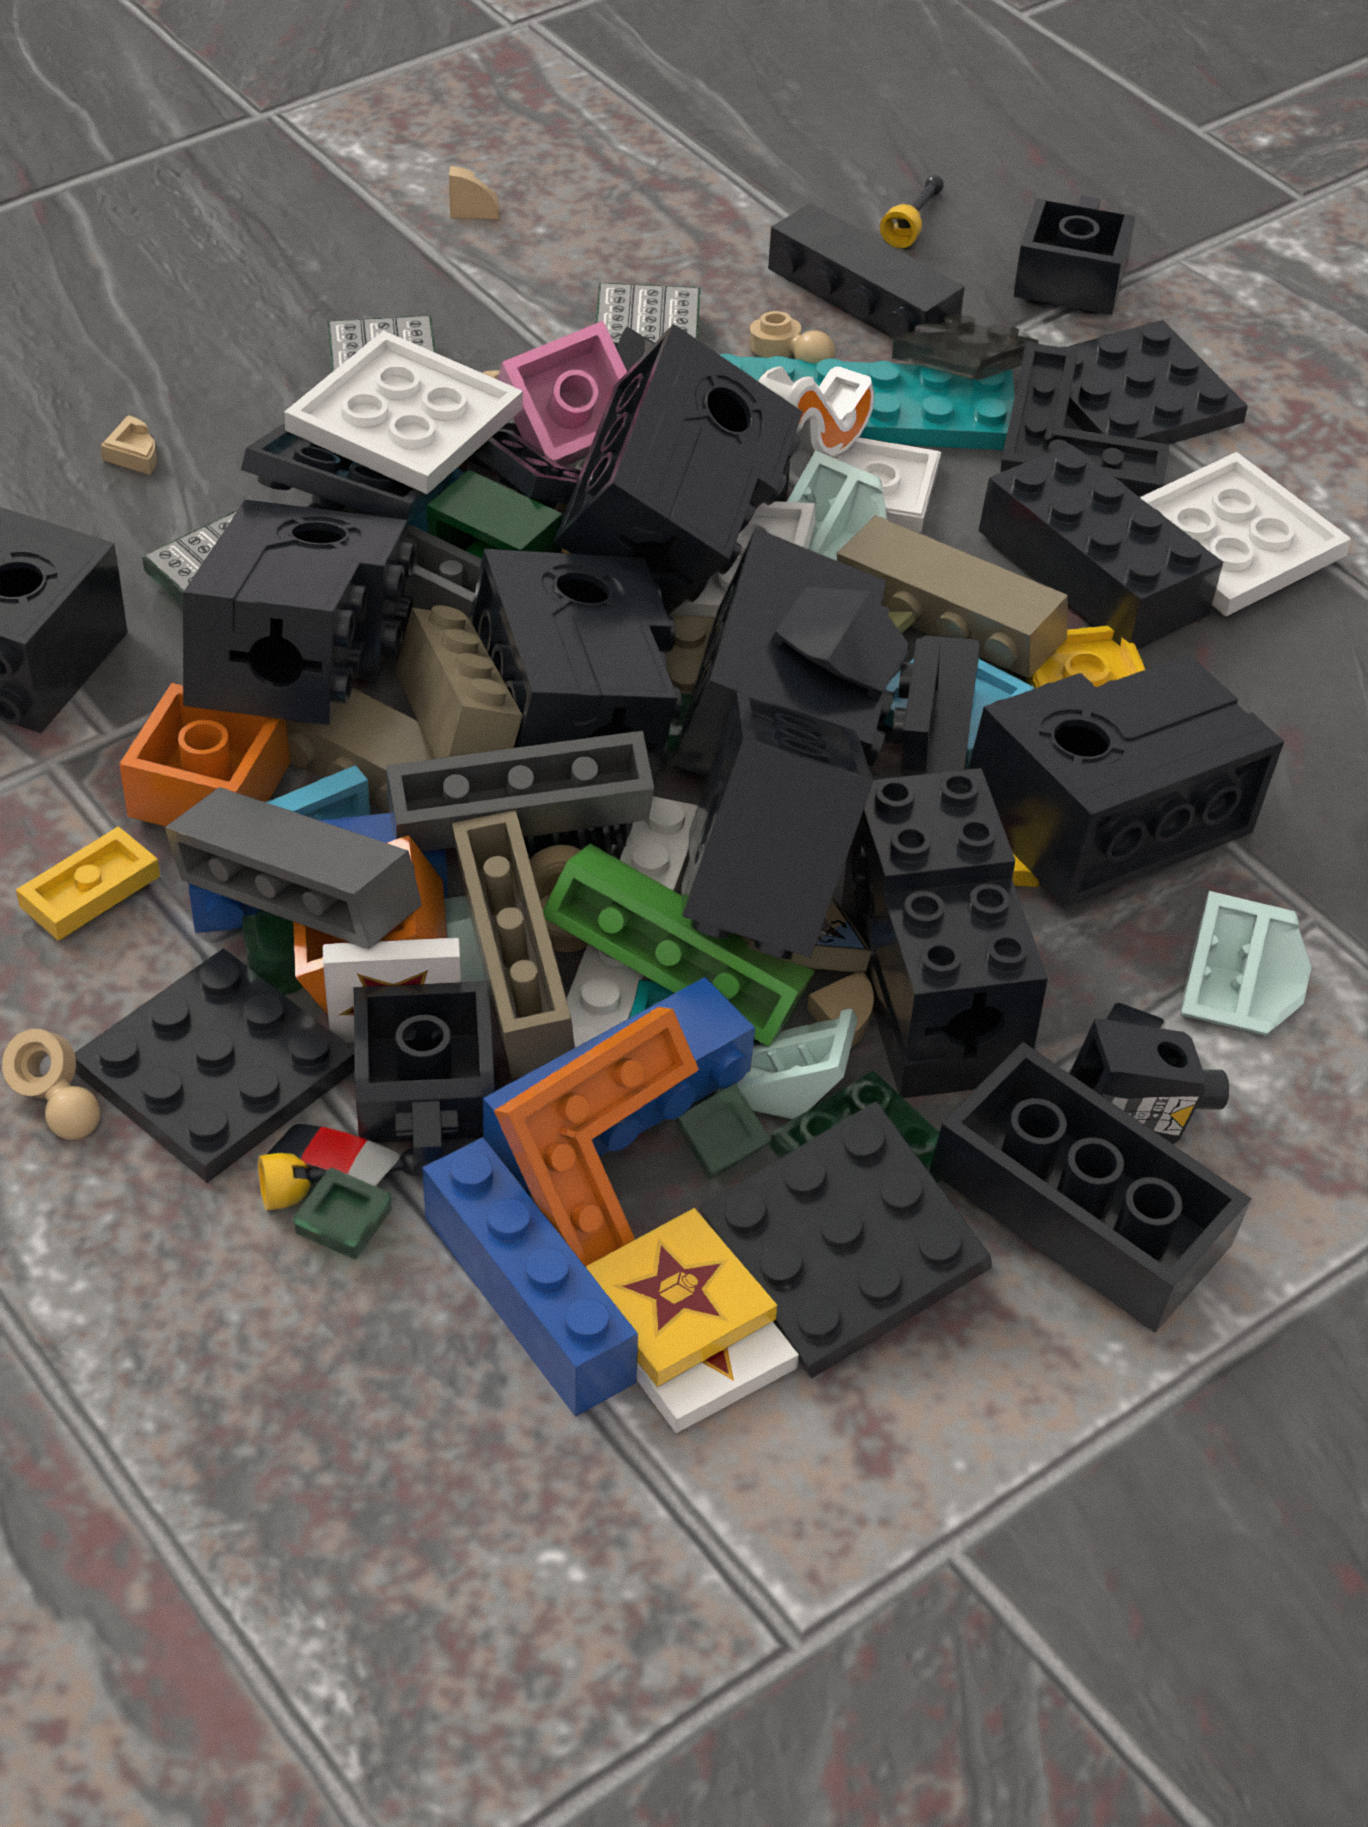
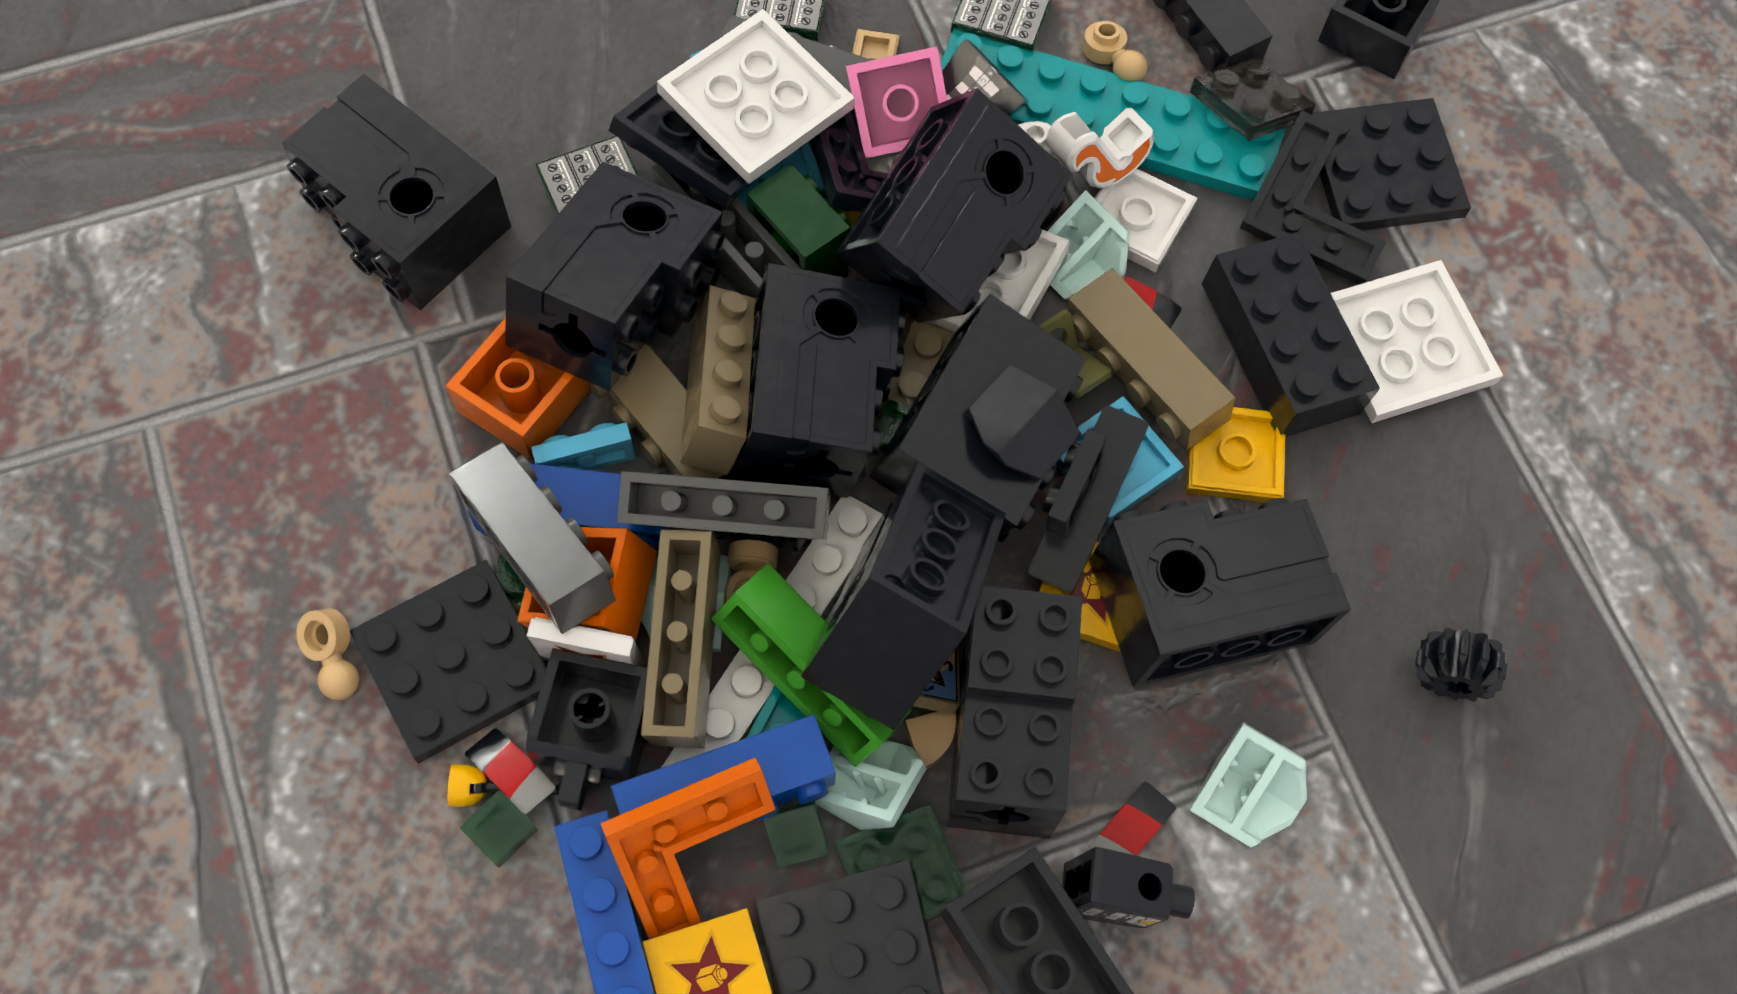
camera: 15 degrees right, 20 degrees up
(88, 883) = (406, 472): yellow plate -> none
(131, 446) = (565, 42): tan tile -> none

